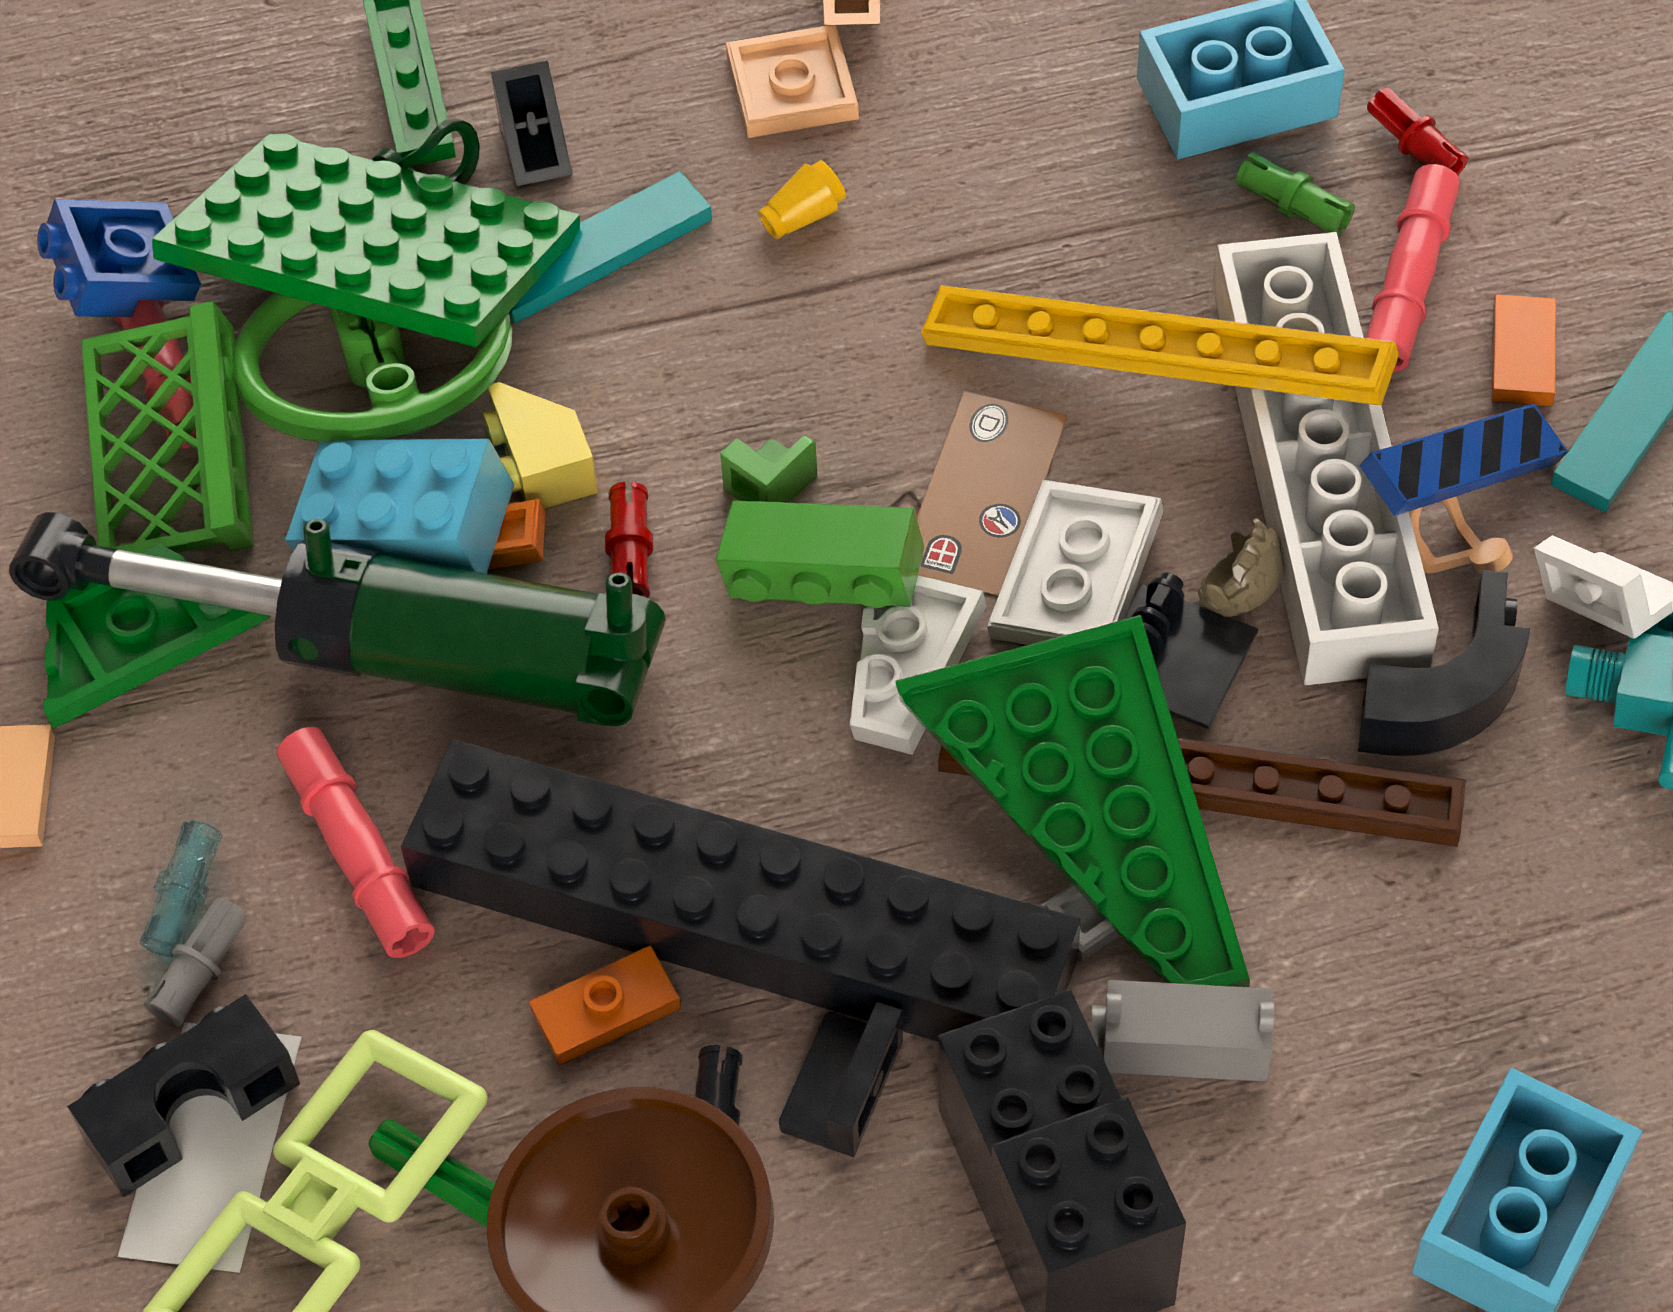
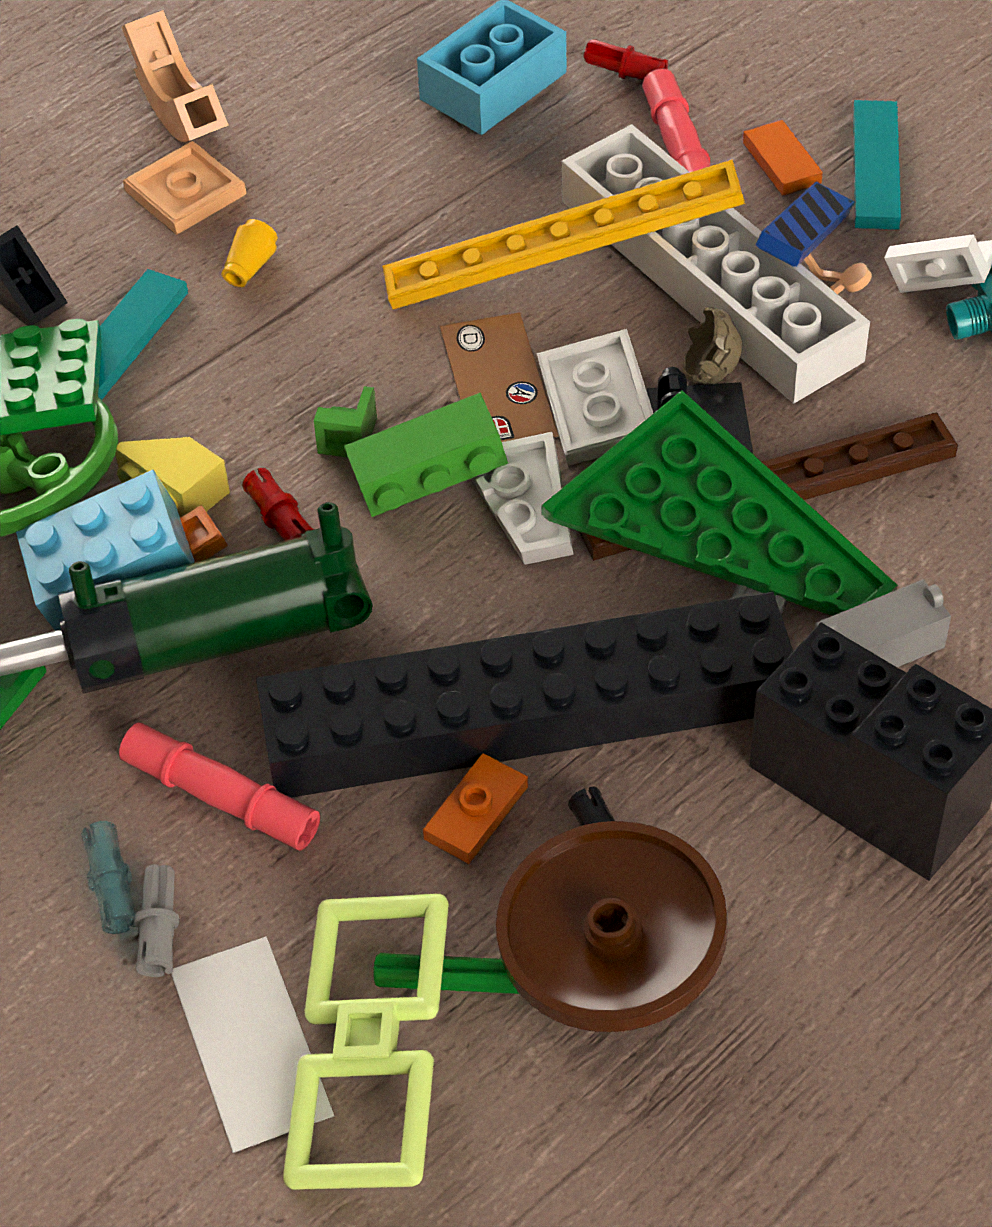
camera: 30 degrees left, 5 degrees down
(223, 1056) = (228, 970): black arch -> none
(843, 1079) = (676, 774): black panel -> none
(1295, 194) = (572, 124): bright green pin -> none
(1452, 702) = (888, 378): black arch -> none

